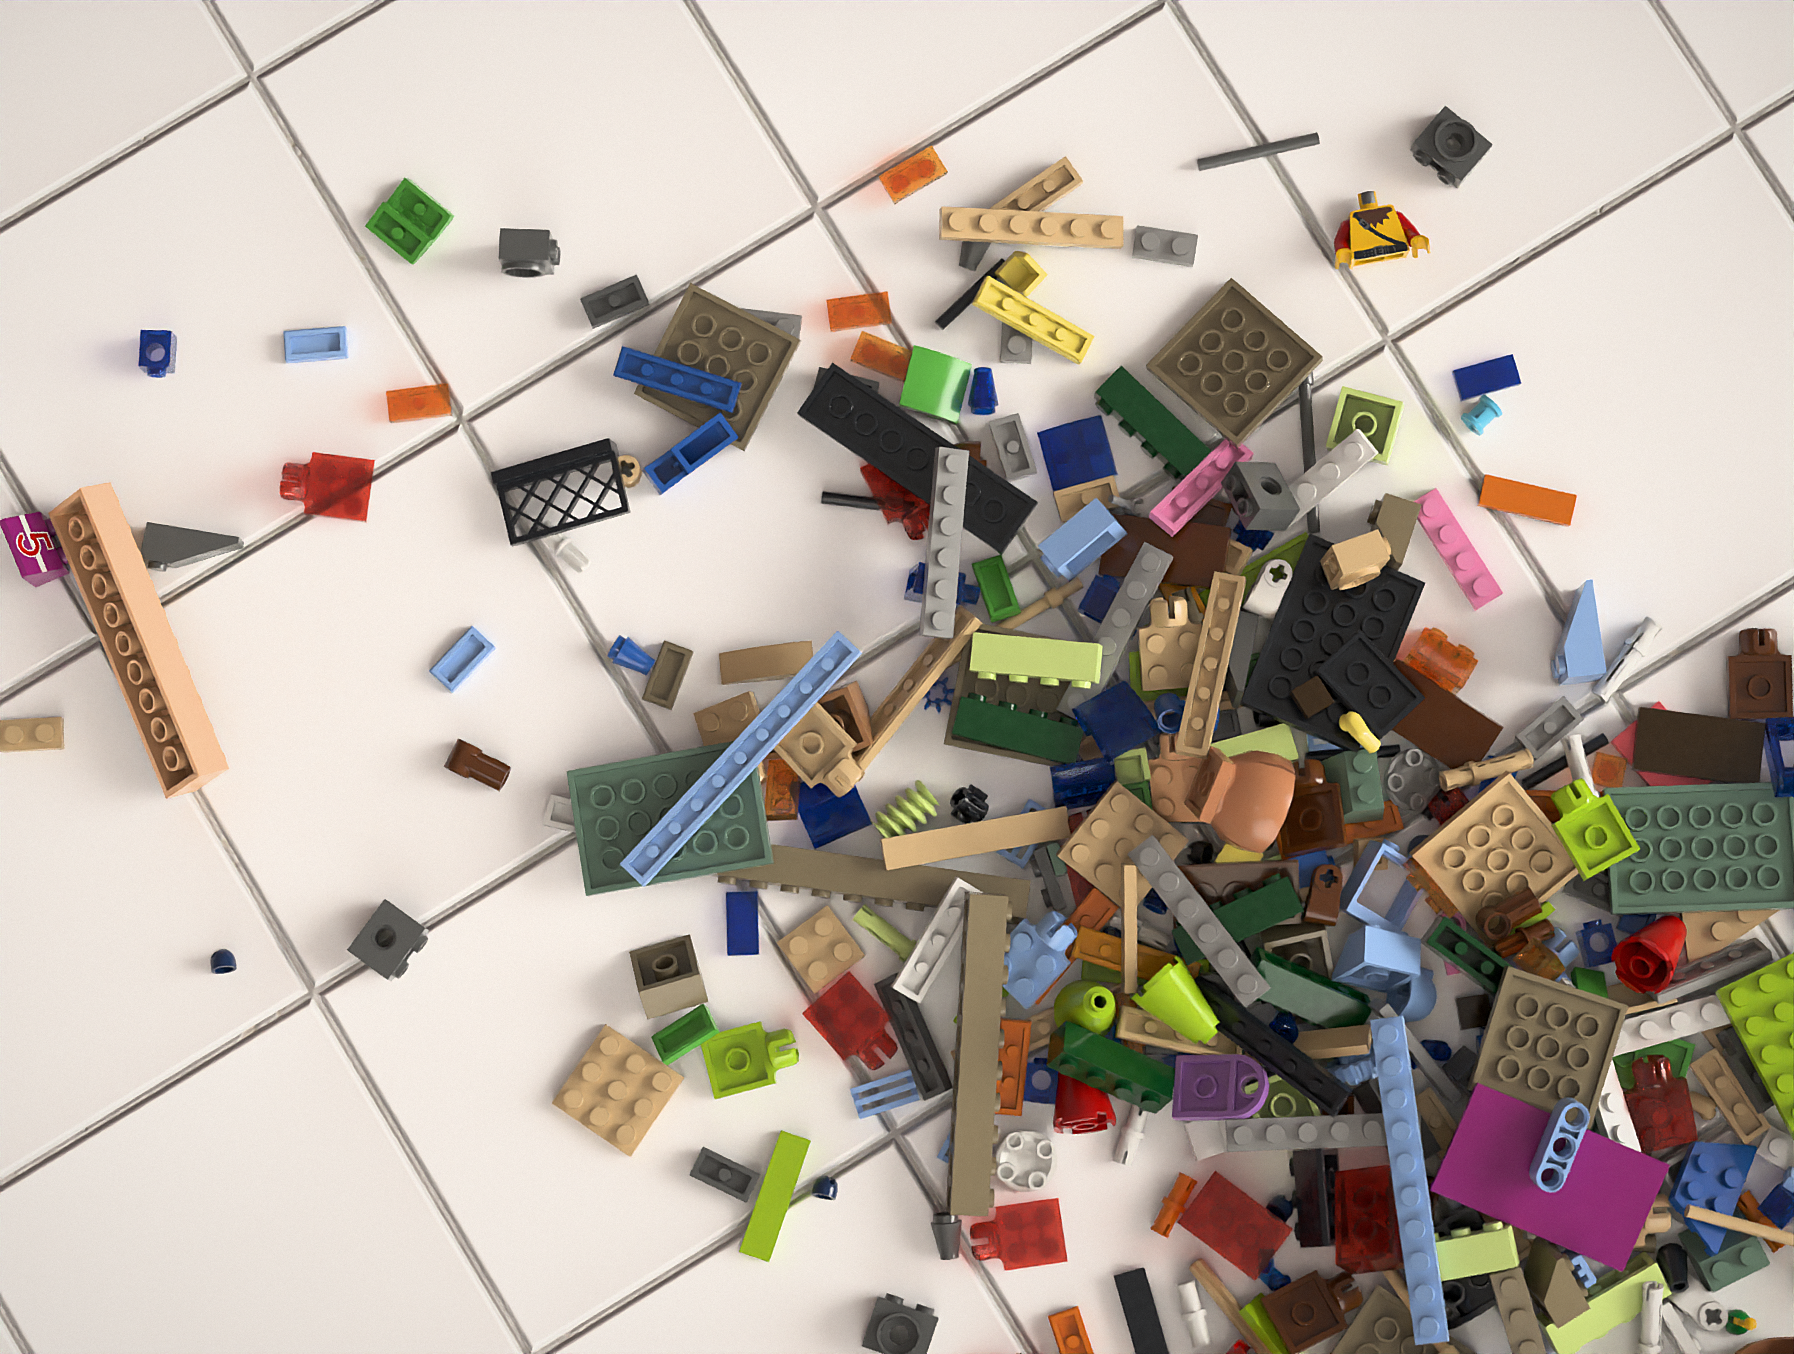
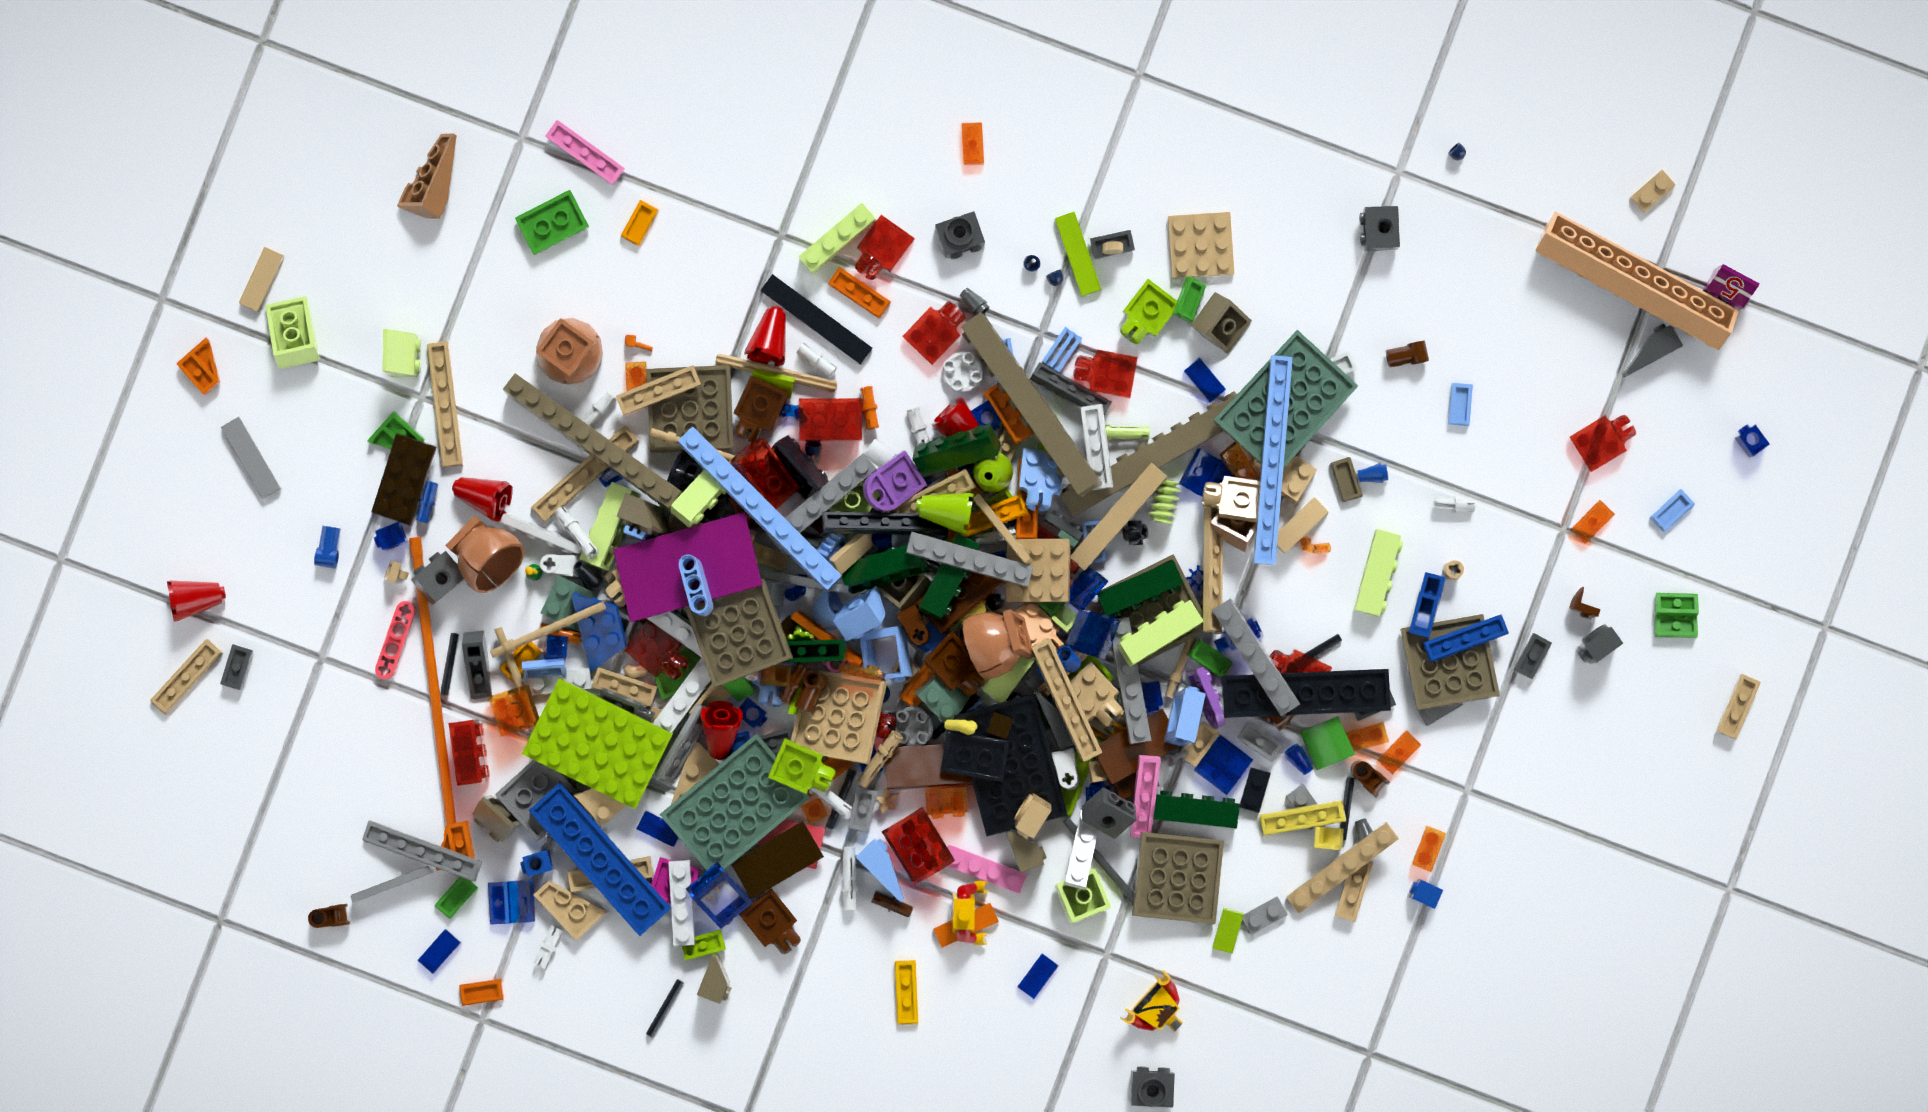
camera: 135 degrees right, 5 degrees up
(424, 63) = (1738, 706): none -> tan plate
(510, 304) = (1586, 611): none -> reddish brown plate
(554, 466) = (1490, 544): black fence -> none
(718, 536) = (1377, 573): none -> yellowish green brick
(729, 1168) = (1112, 247): none -> tan tile
(770, 622) = (1314, 548): none -> clear orange arm
(821, 949) = (1153, 398): tan plate -> none
(840, 1222) = (1034, 266): none -> dark blue hinge
(917, 304) = (1371, 780): none -> reddish brown piece
(957, 126) = (1425, 893): none -> blue brick
(1029, 566) = (1211, 708): none -> medium lavender plate
(1062, 397) = (1254, 789): none -> black plate
(1222, 259) = (1227, 930): none -> lime tile
(1258, 151) = (1254, 1006): dark grey bar -> none
(1446, 991) = (820, 632): none -> orange tile
(1469, 990) = (800, 635): none -> lime plant
(1481, 415) = (1025, 952): medium azure bush -> none
(1514, 716) = (886, 801): none -> tan plant
(1517, 632) = (918, 846): none -> clear red brick
(1520, 514) = (964, 913): none -> torso
(1604, 600) = (892, 904): none -> reddish brown axle
(1657, 476) = (906, 992): none -> yellow tile

